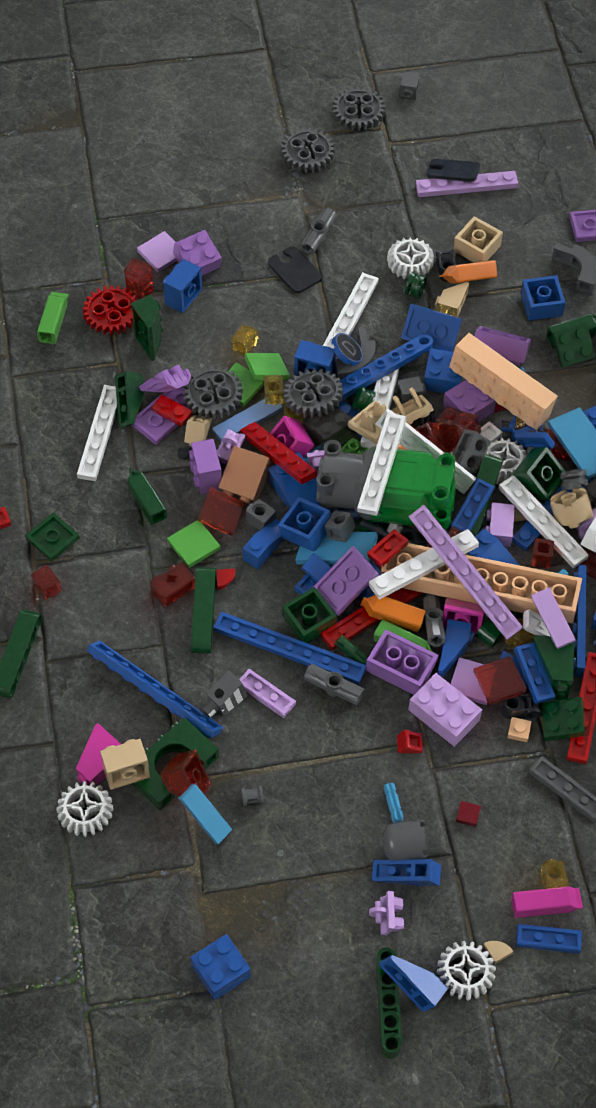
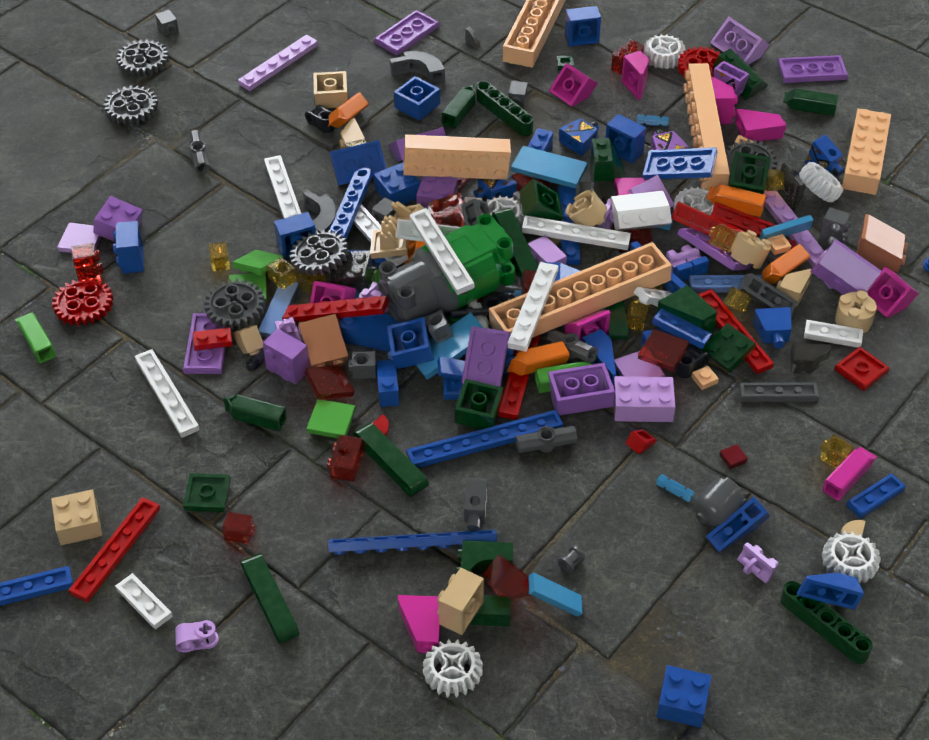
camera: 40 degrees left, 10 degrees down
(128, 397) = (167, 351): dark green slope -> none
(147, 325) = (132, 288): dark green slope -> none
(167, 380) = (190, 317): medium lavender slope -> none
(267, 693) = (507, 482): lavender tile -> none
(298, 273) = (207, 189): black piece -> none
(347, 349) = (315, 208): tile -> none
(351, 650) = (534, 407): dark green axle -> none
(362, 398) = (359, 237): dark green wheel -> none
(387, 548) = (496, 312): red plate -> none
(400, 253) = (290, 130): white gear -> none
(415, 285) = (314, 143): dark green wheel -> none
(454, 170) = (260, 57): black piece -> none
(465, 572) = (571, 288): lavender tile -> none
(473, 505) = (521, 257): blue tile -> none
(534, 439) = (513, 184): blue tile -> none
(542, 553) = (596, 252): clear red brick -> none
(553, 618) = (662, 278): lavender tile -> none
(573, 345) = (471, 114): dark green plate -> none
(573, 479) = (569, 191): dark grey wheel -> none

